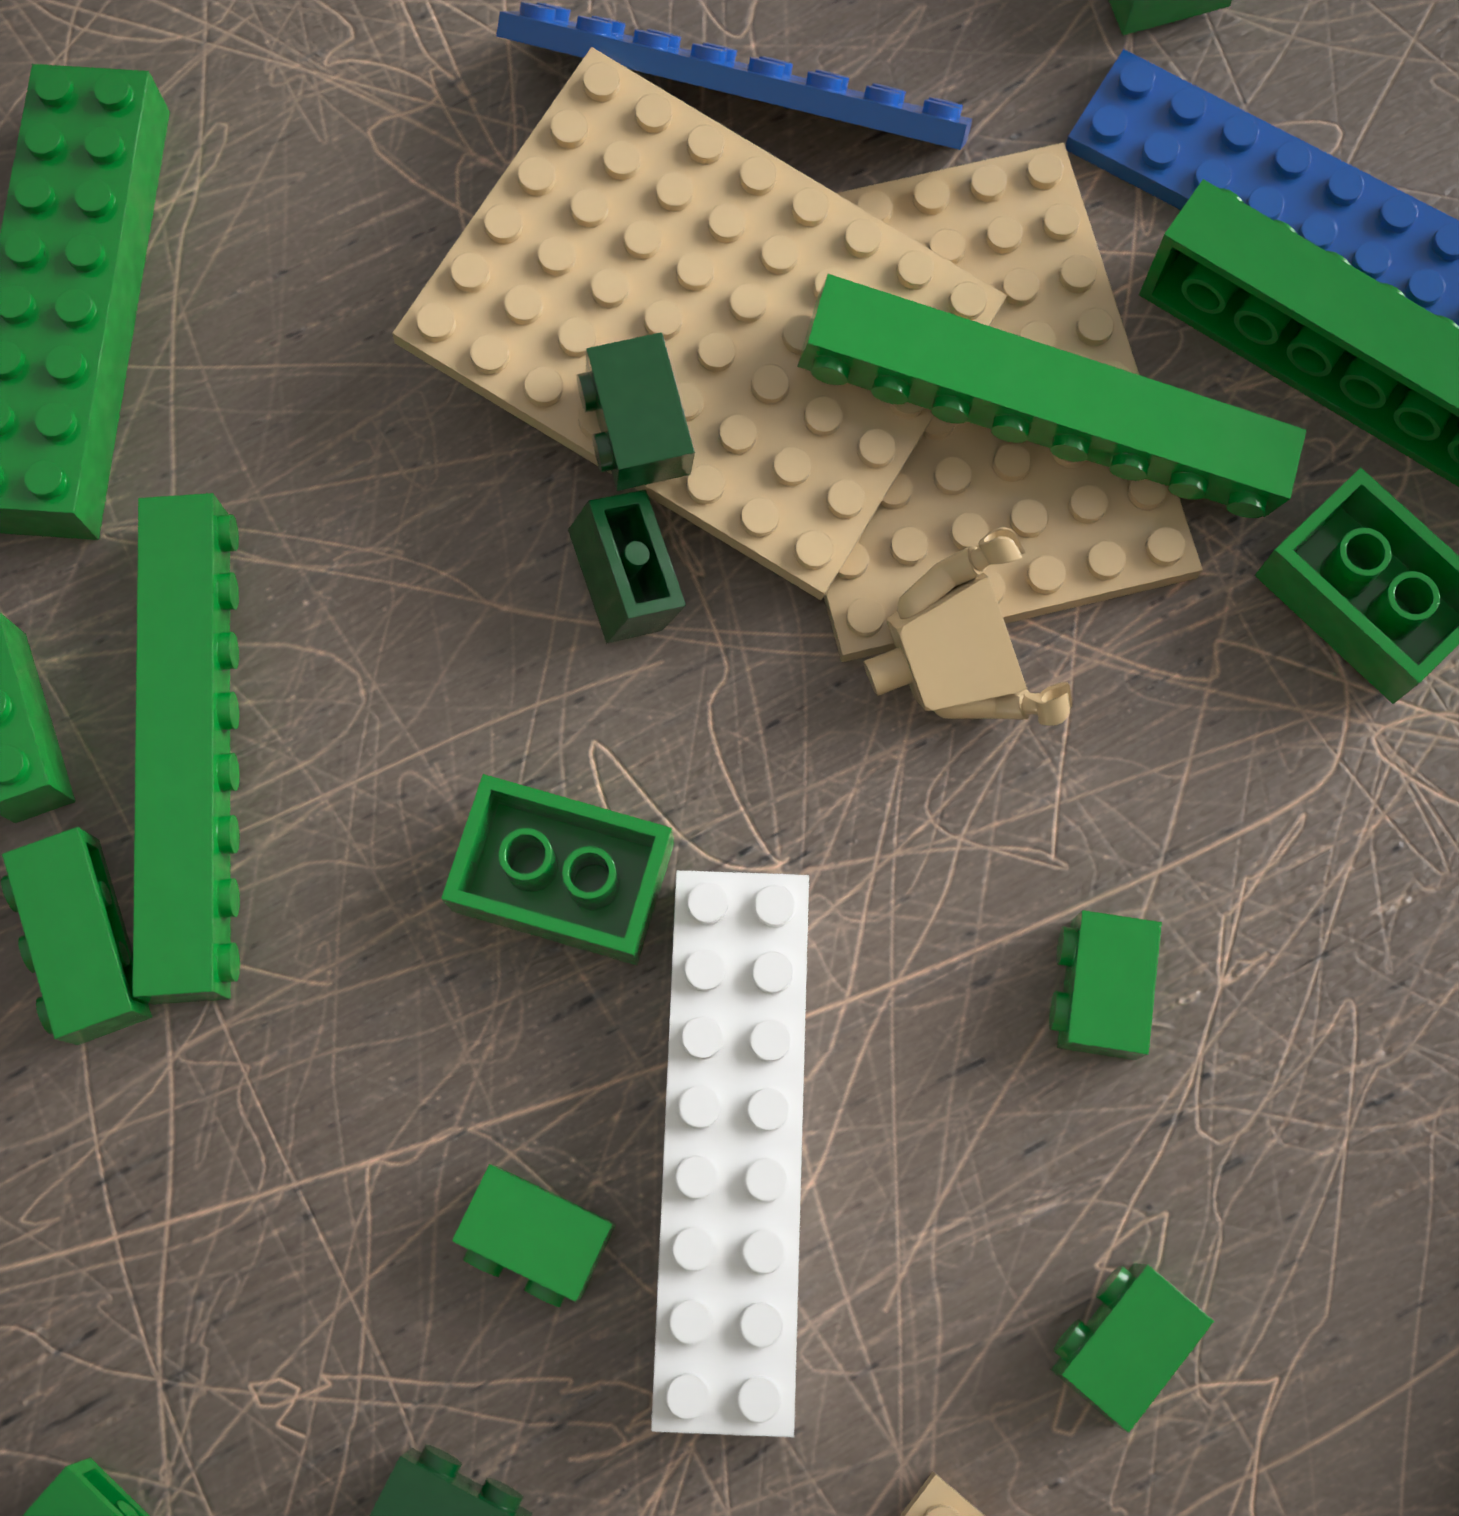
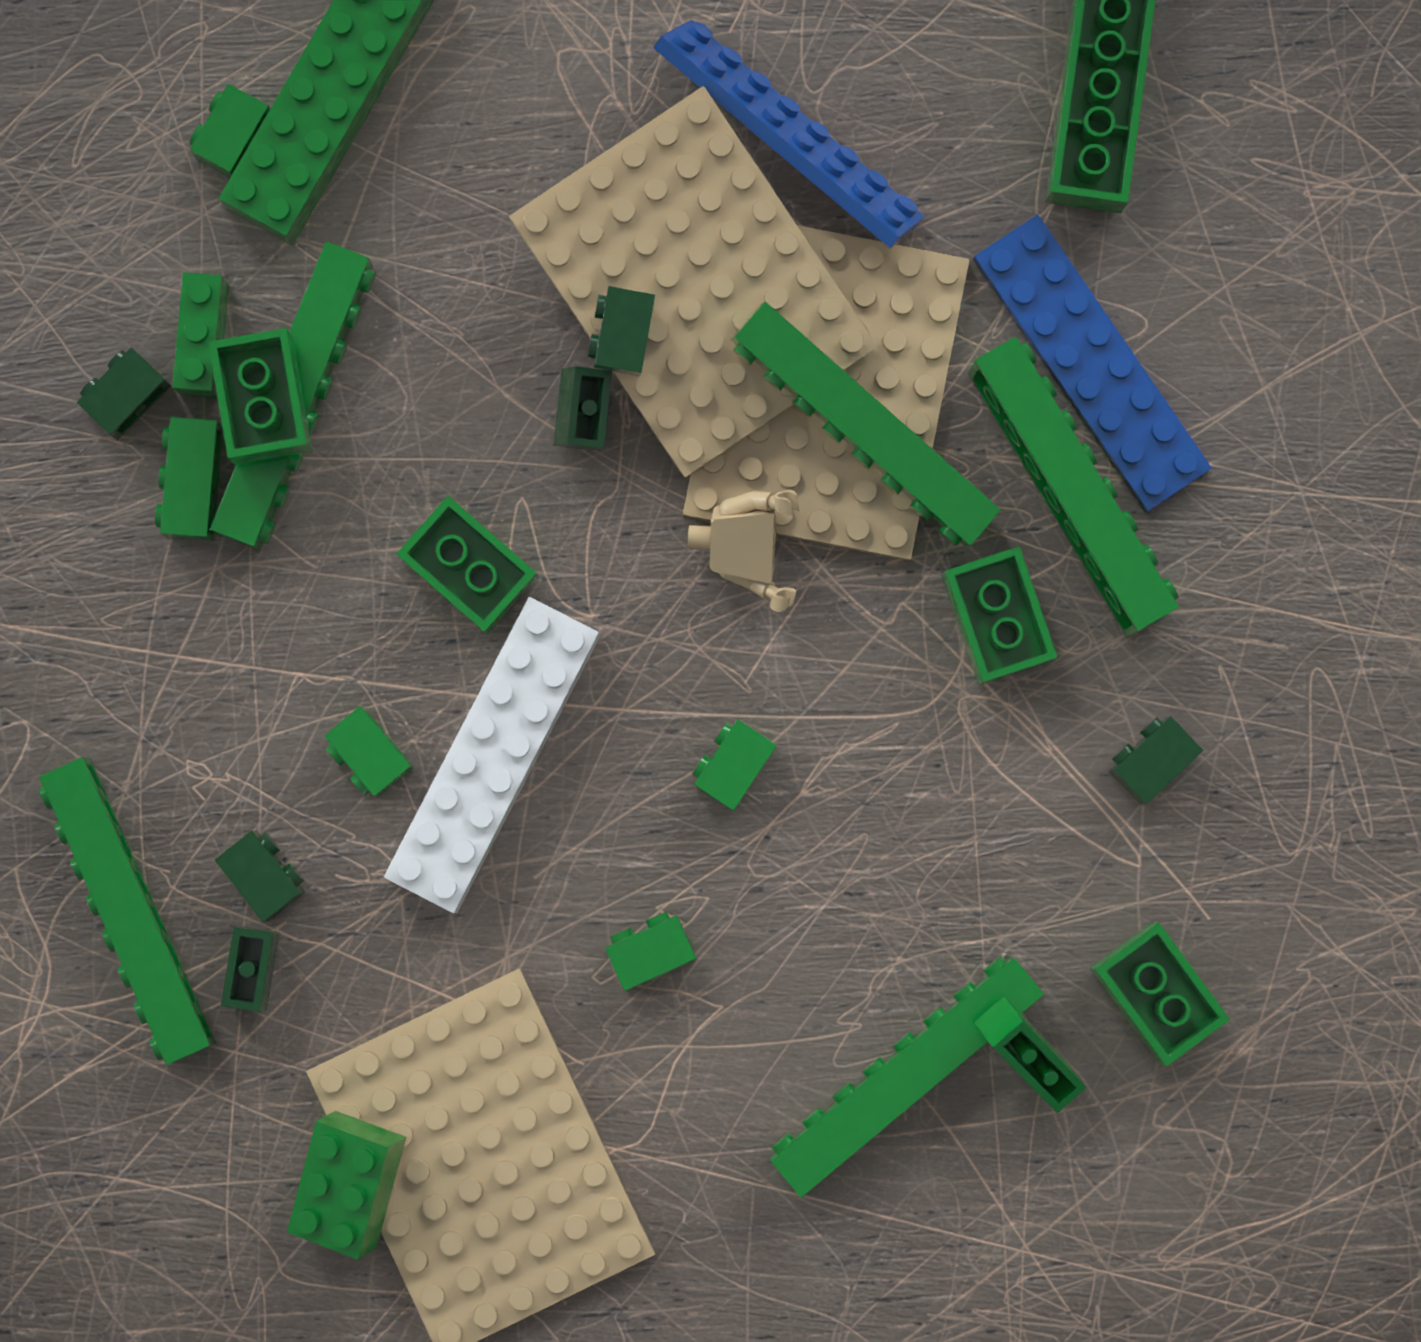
camera: 20 degrees right, 10 degrees up
(123, 753) = (260, 396): none -> green brick

